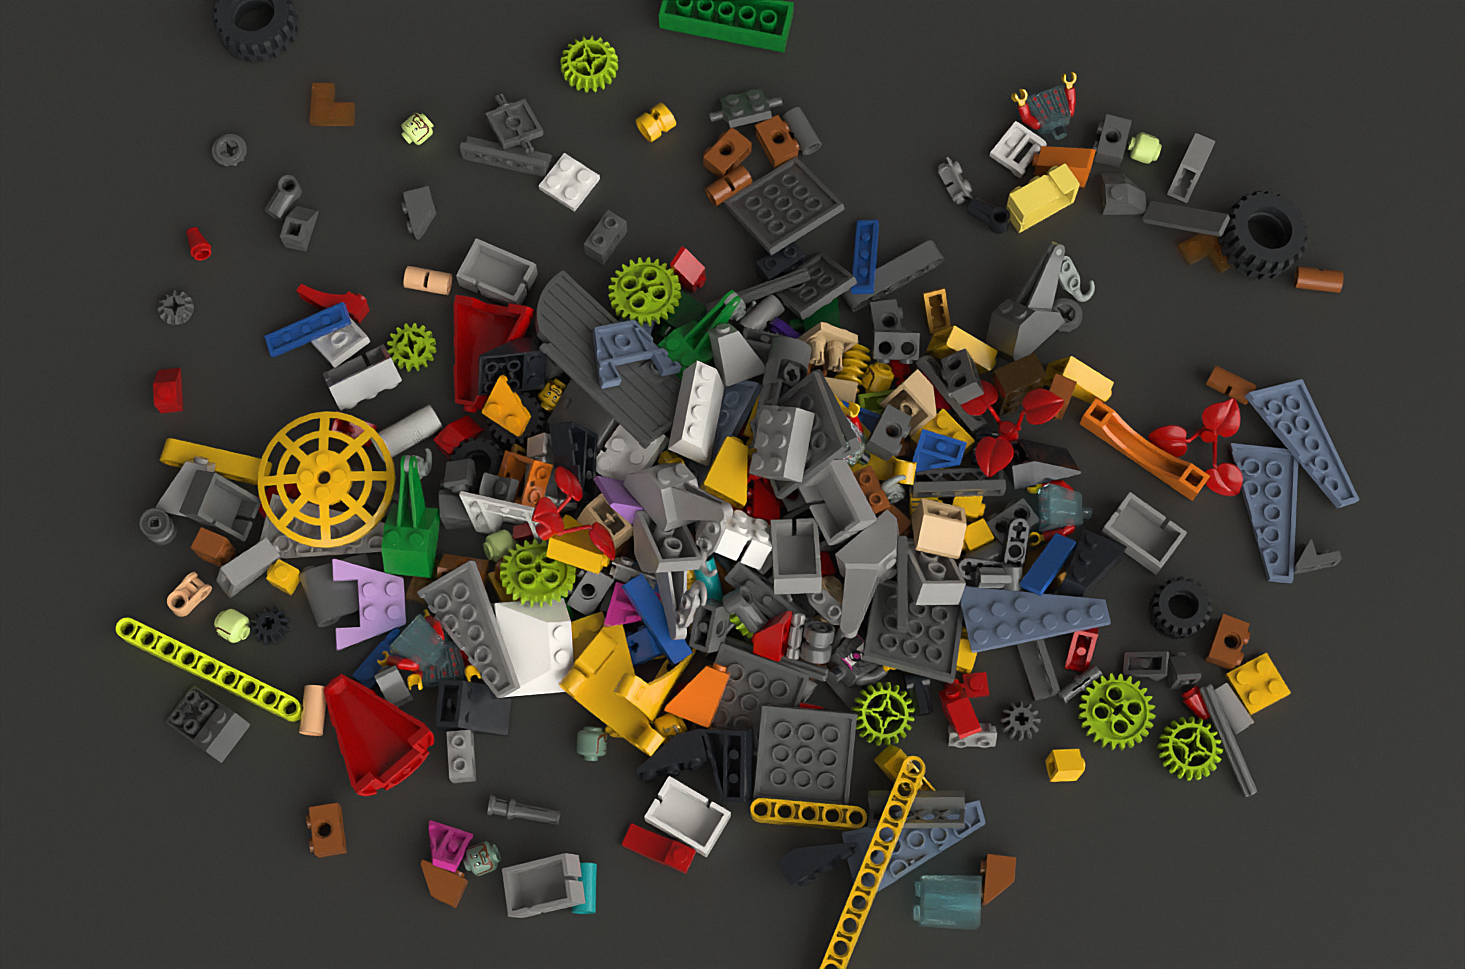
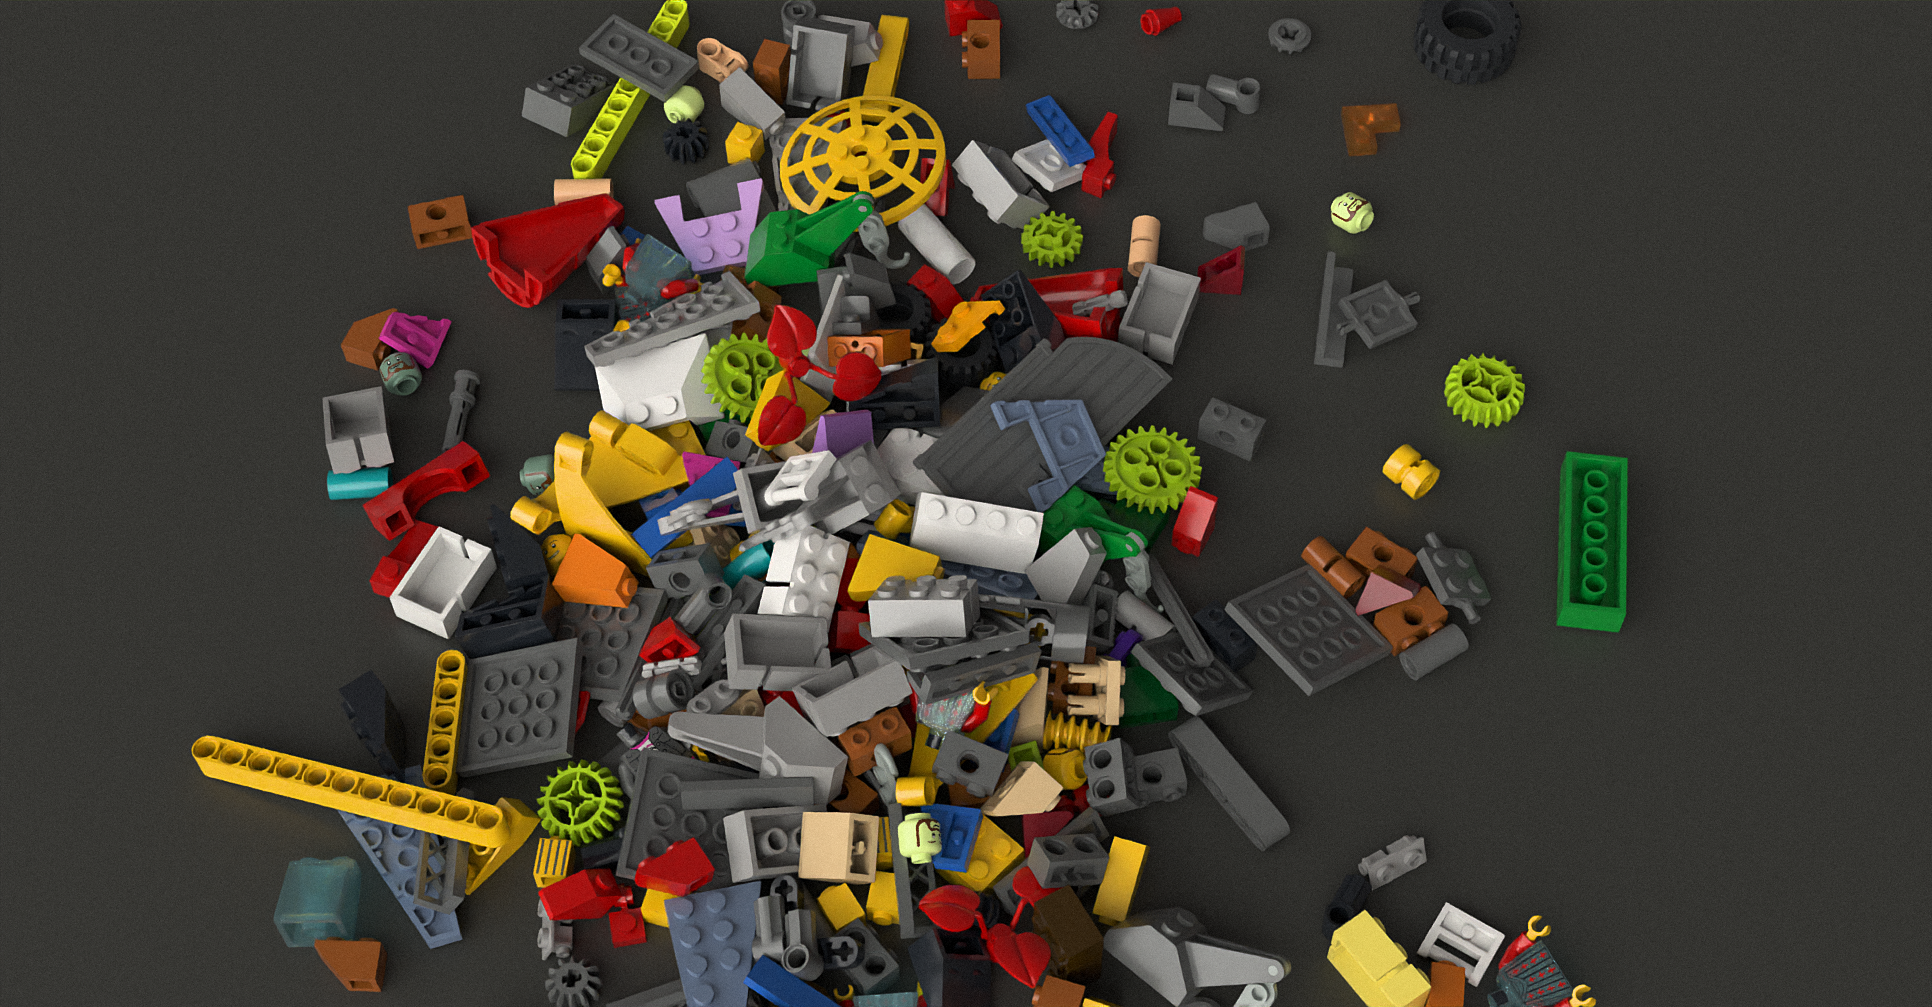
camera: 85 degrees right, 15 degrees down
(185, 656) = (639, 57): none -> dark grey plate
(197, 376) = (983, 49): none -> dark orange brick
(461, 226) = (1223, 273): none -> dark red slope
(461, 756) = (525, 340): light grey brick -> none
(485, 315) = (1115, 299): none -> light grey axle
(569, 182) = (1309, 387): white plate -> none
(582, 810) = (396, 507): none -> red arch
(665, 516) = (802, 471): none -> white plate
(758, 151) = (1384, 589): none -> slope
(865, 256) = (1248, 739): blue tile -> none
(926, 733) = (553, 860): none -> yellow brick
(935, 310) = (1181, 841): pearl gold slope -> none
(945, 469) = (919, 837): none -> yellowish green head
(955, 635) = (676, 871): none -> red slope
(1012, 556) = (802, 943): none -> dark grey piece

